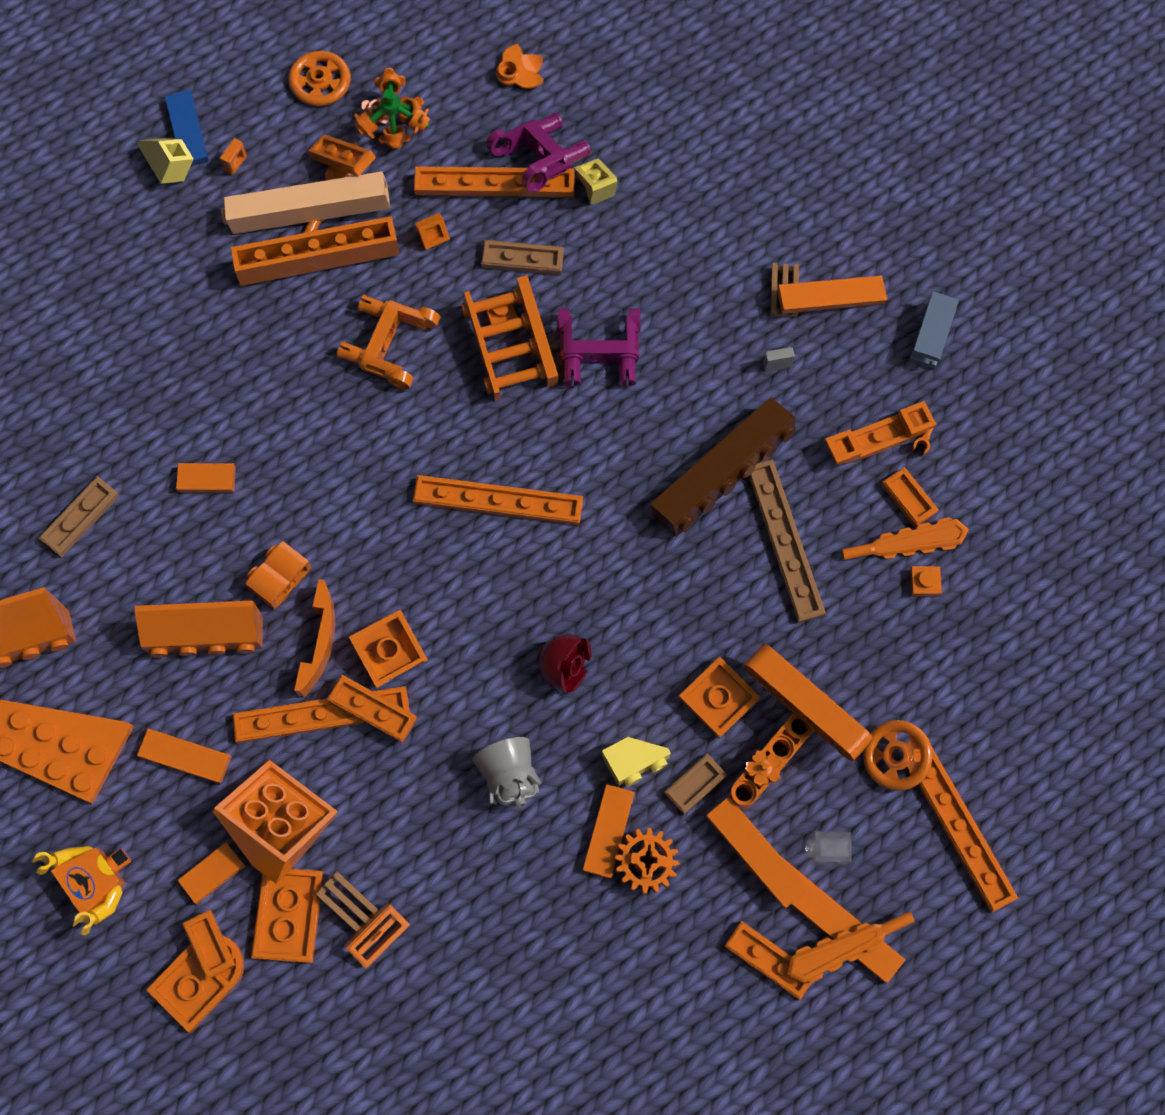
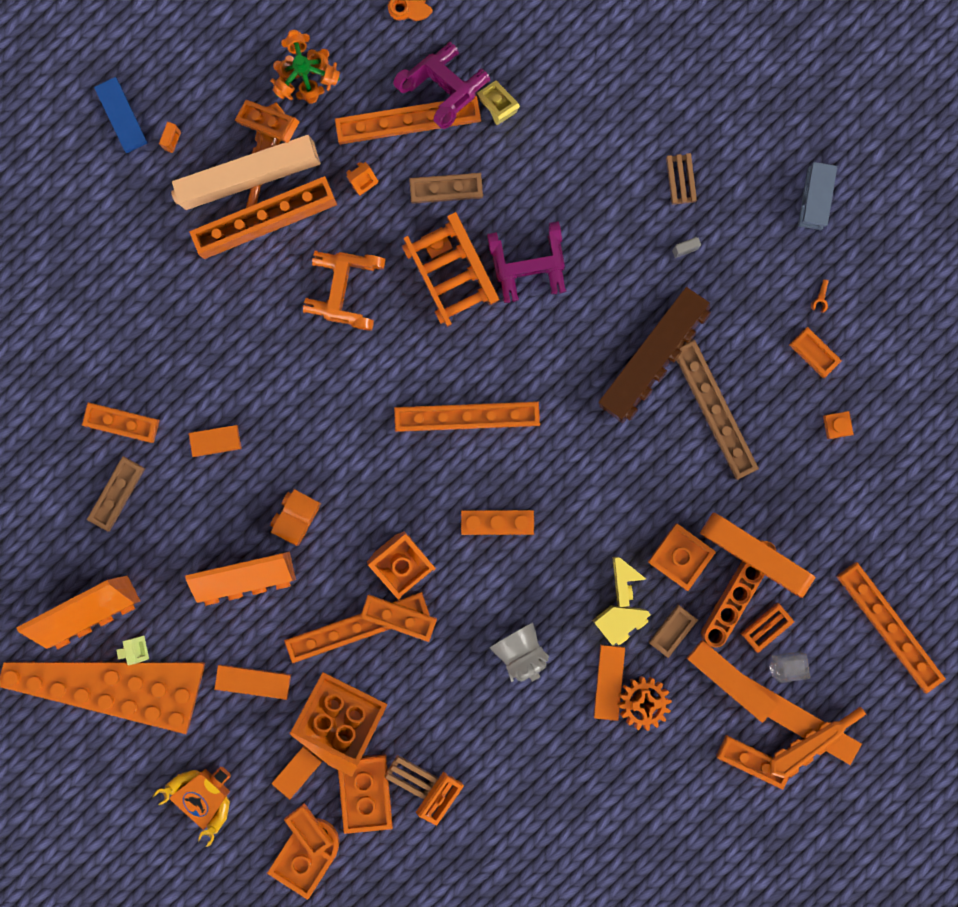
camera: 10 degrees left, 15 degrees up
(54, 692) = (134, 650): none -> yellowish green tile
(104, 440) = (120, 422): none -> orange tile
(167, 158) = (110, 149): light yellow slope -> none
(310, 673) = (340, 535): orange slope -> none
(315, 97) = (210, 50): orange plate -> none
(510, 622) = (497, 522): none -> orange plate
(563, 661) = (548, 552): dark red cylinder -> none
(648, 705) = (624, 573): none -> light yellow slope
(764, 768) = (729, 614): orange plant -> none
(788, 813) = (783, 614): none -> orange tile
(831, 294) = (723, 177): orange tile -> none
(882, 435) = (784, 301): orange slope -> none
(890, 778) = (851, 567): orange plate -> none
(945, 534) = (833, 387): orange sword -> none

